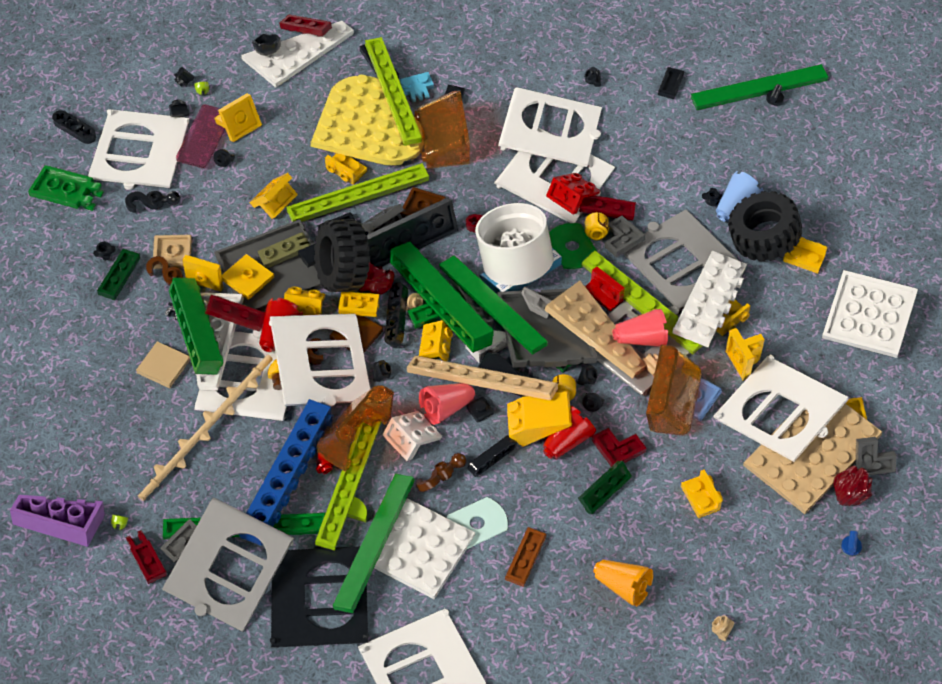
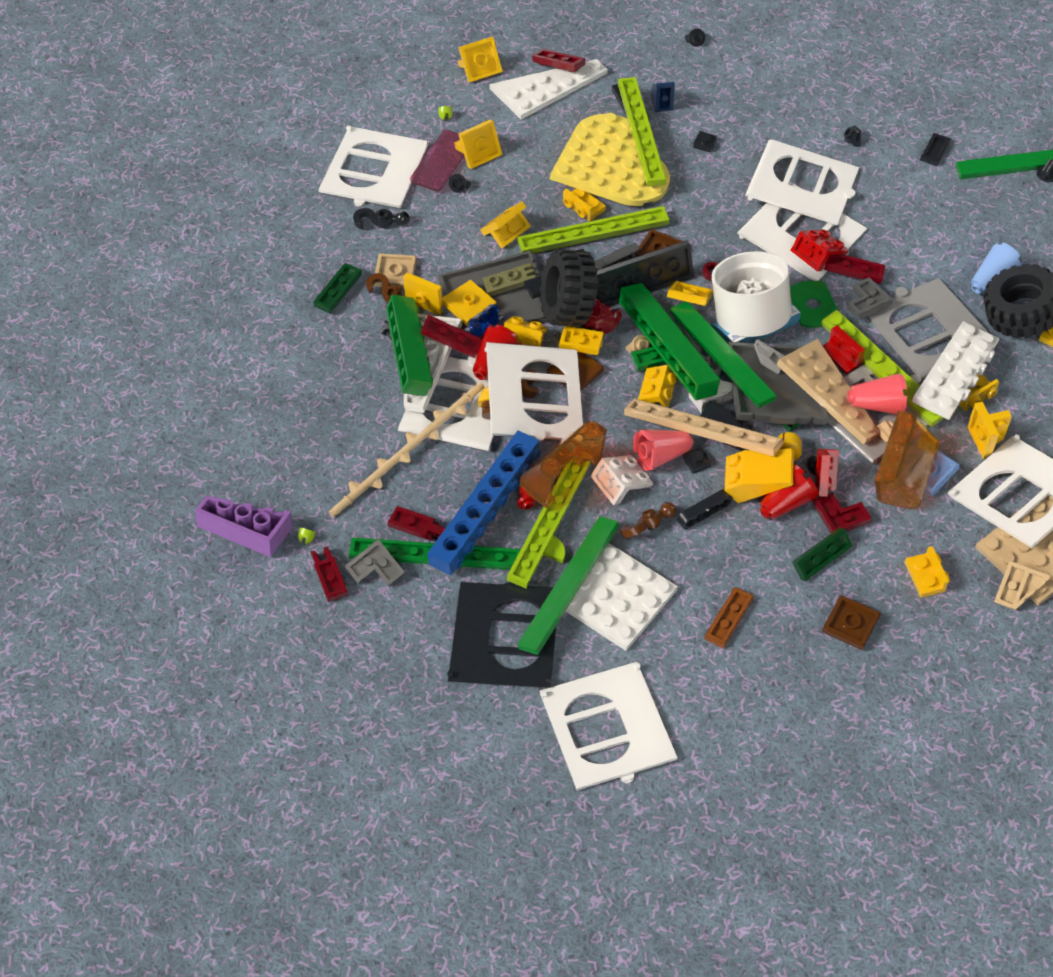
camera: 10 degrees right, 0 degrees up
(65, 188) = (295, 199): green tile -> none
(76, 133) = (308, 133): black beam -> none
(104, 246) = (326, 263): black plate -> none
(163, 364) = (371, 382): tan tile -> none
(178, 108) = (419, 130): black plate -> none
(183, 77) = (428, 100): black plate -> none
(194, 565) = (376, 589): light grey door -> none
(227, 496) = (415, 524): none -> dark red hinge
(229, 31) = (479, 59): none -> yellow bracket
(263, 294) = (481, 321): none -> clear blue hinge
(267, 44) = (516, 75): black helmet -> none
(381, 370) = (597, 410): black plate -> none
(397, 296) = (622, 338): black beam -> none
(410, 53) = (663, 96): none -> dark blue slope
(417, 86) = (667, 129): medium azure hinge -> none
(444, 131) = (690, 176): clear orange windscreen -> none
(456, 247) = (690, 293): none -> yellow plate
(489, 511) = (696, 566): light aqua piece -> none
(587, 375) = (815, 436): black plate -> none
(596, 226) = (841, 285): yellow head -> none
(601, 408) = (826, 470): none -> bracket
(625, 579) = (834, 652): light orange cone -> none
(638, 547) = (851, 622): none -> reddish brown plate
(712, 201) = (968, 268): black plate -> none
(722, 627) = (935, 714): tan plate -> none
(785, 497) = (1018, 585): none -> tan wing

